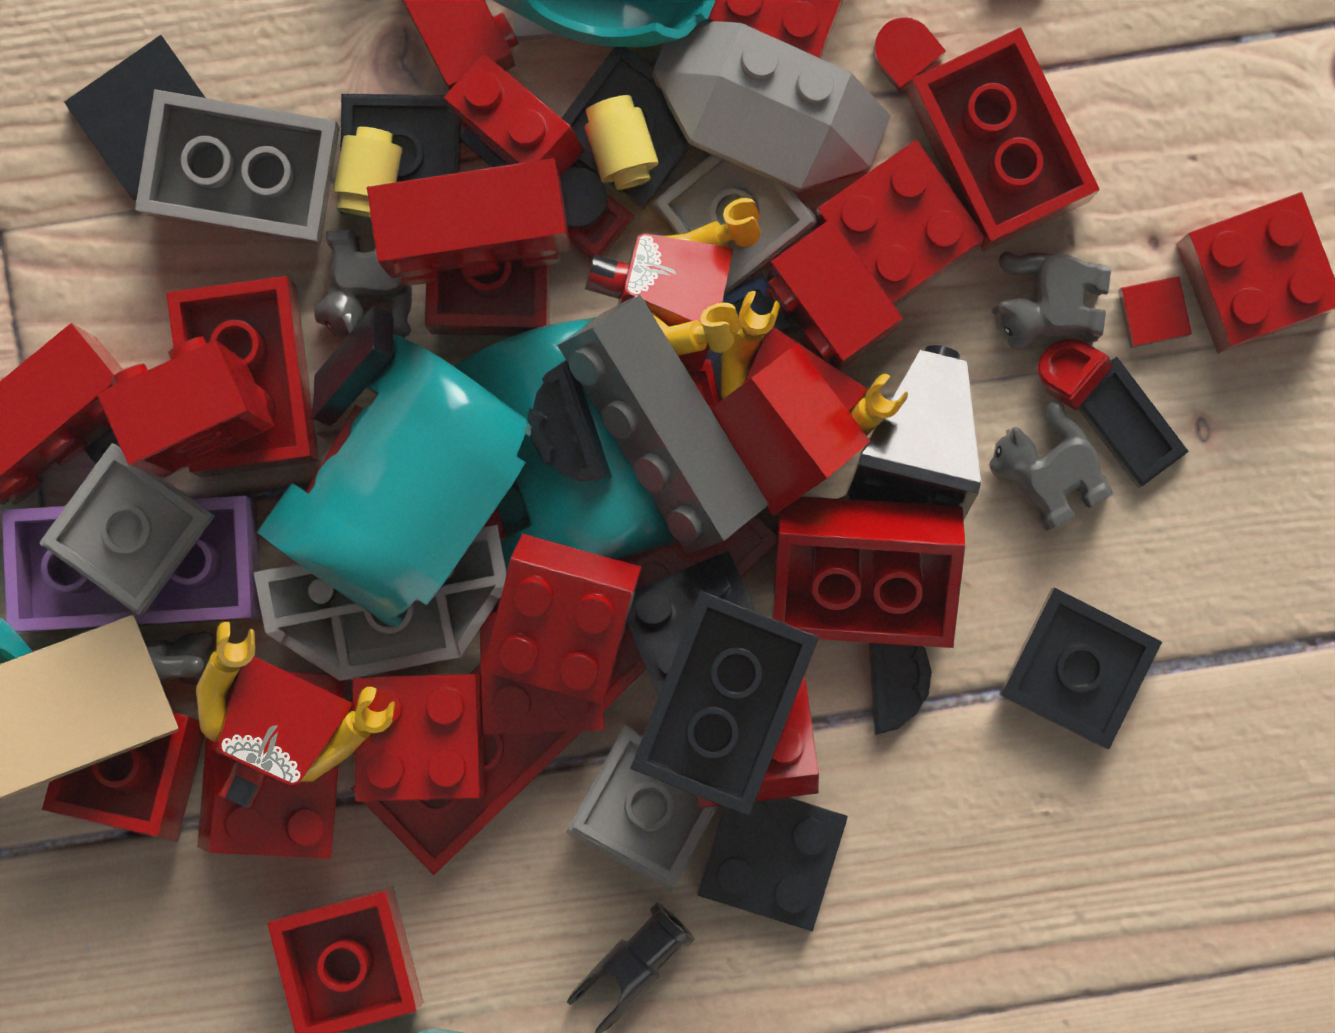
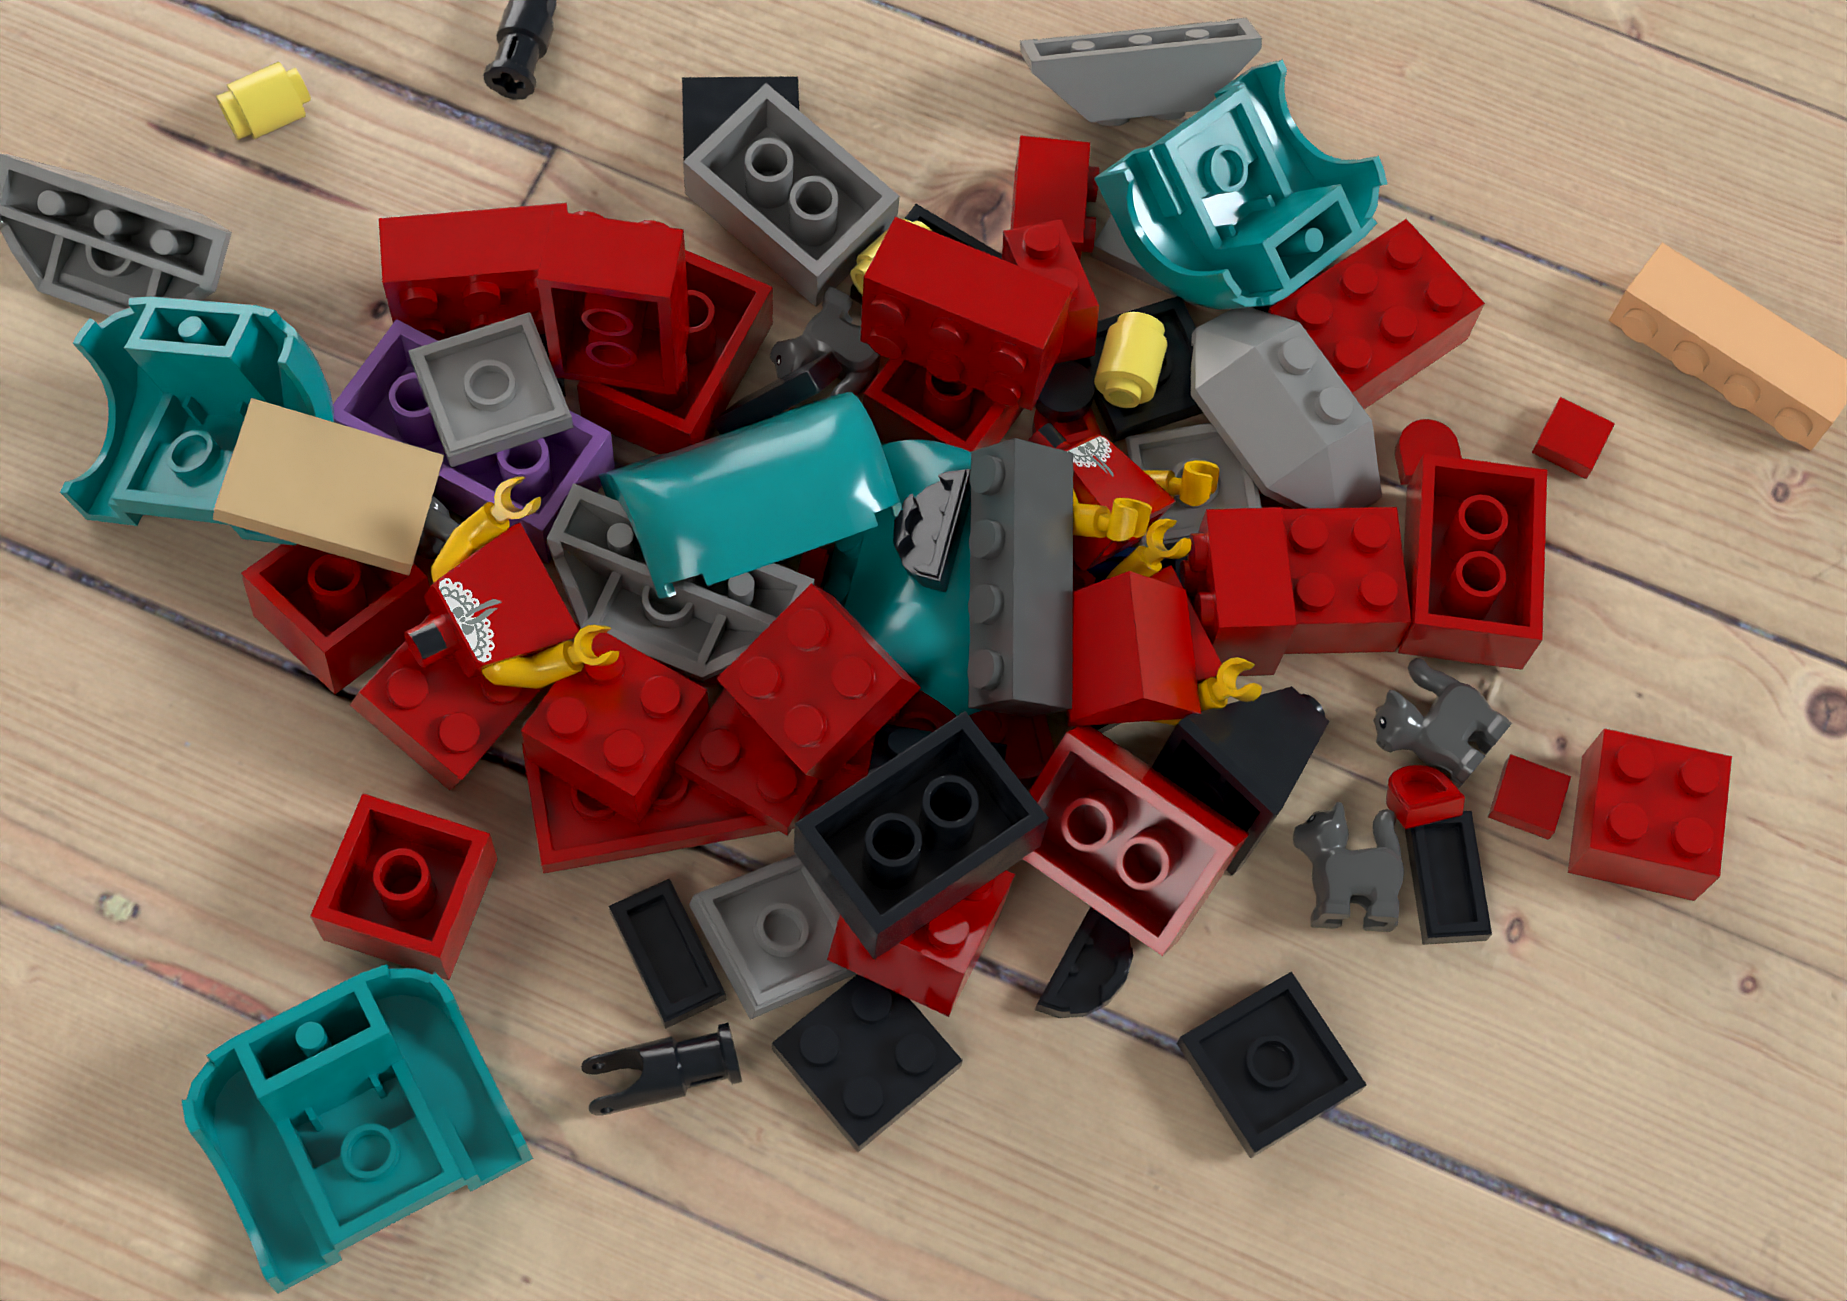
camera: 20 degrees right, 20 degrees down
(571, 874) = (667, 953): none -> black tile

